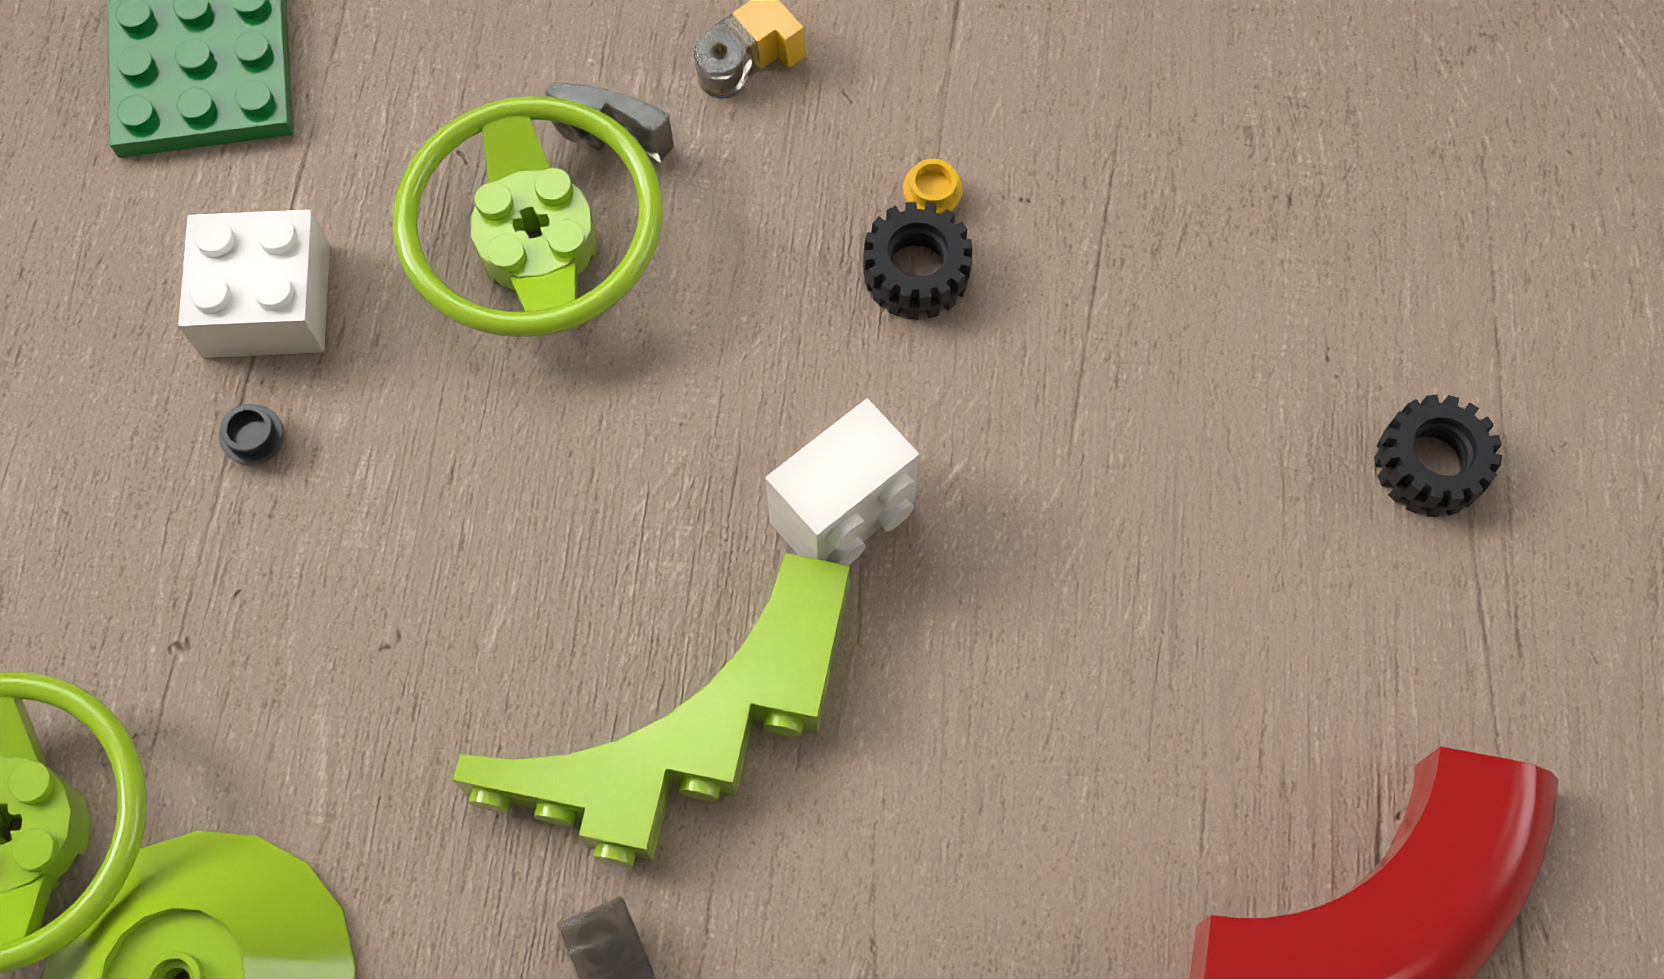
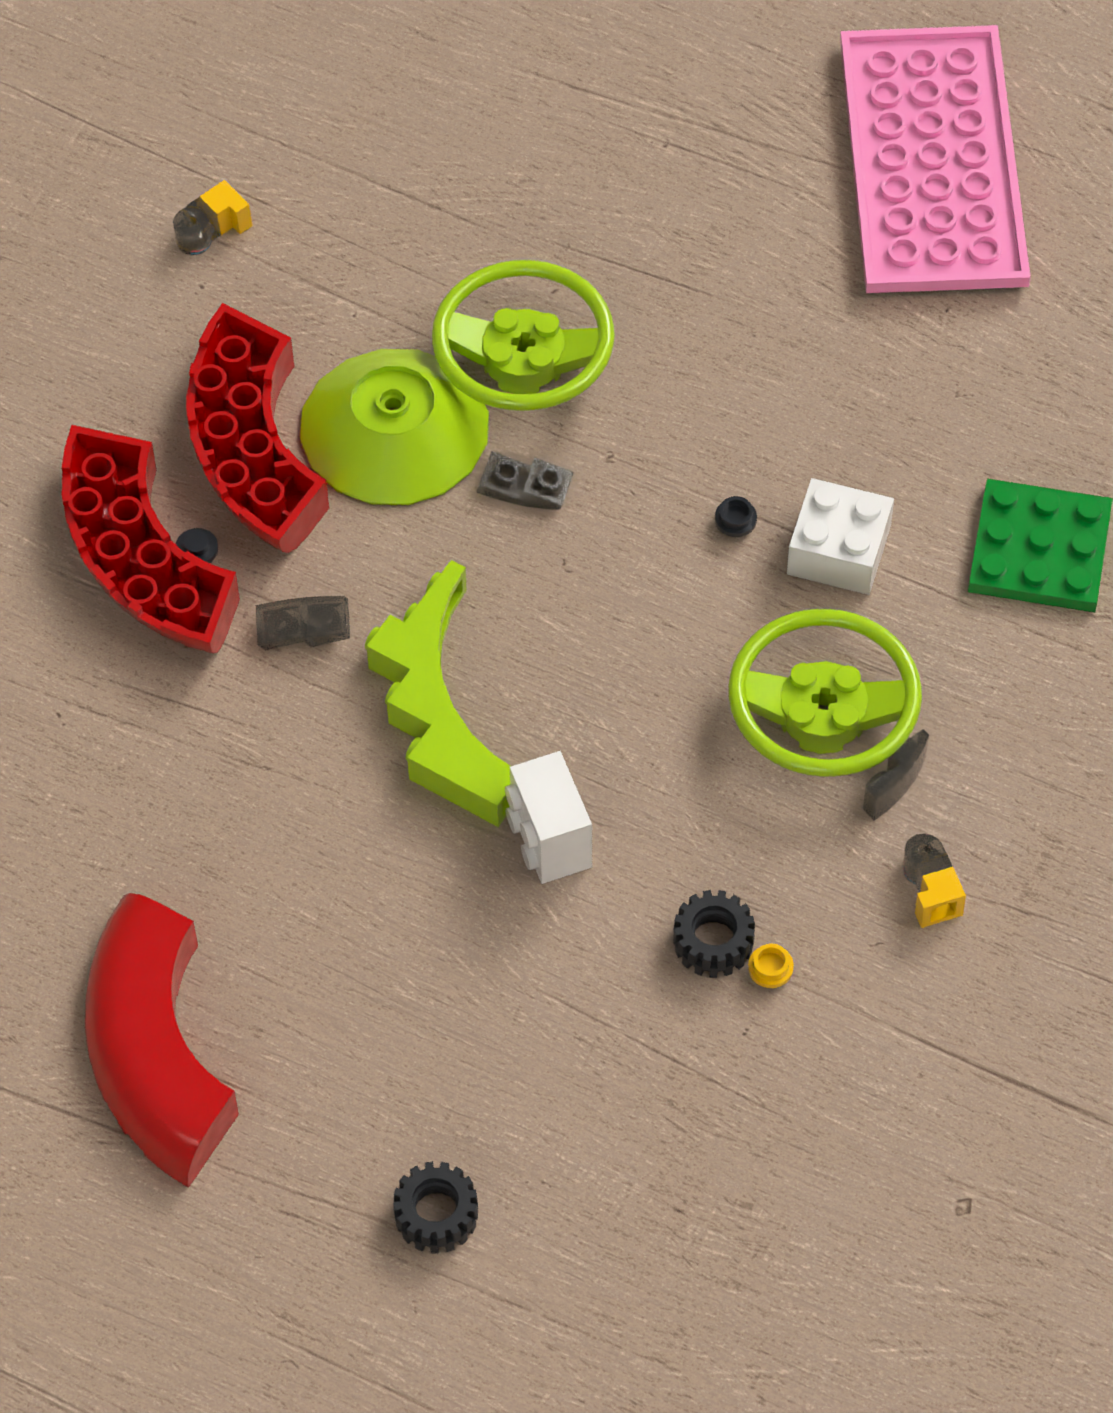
camera: 110 degrees right, 10 degrees down
(262, 745) = (518, 483): none -> clear smoke slope

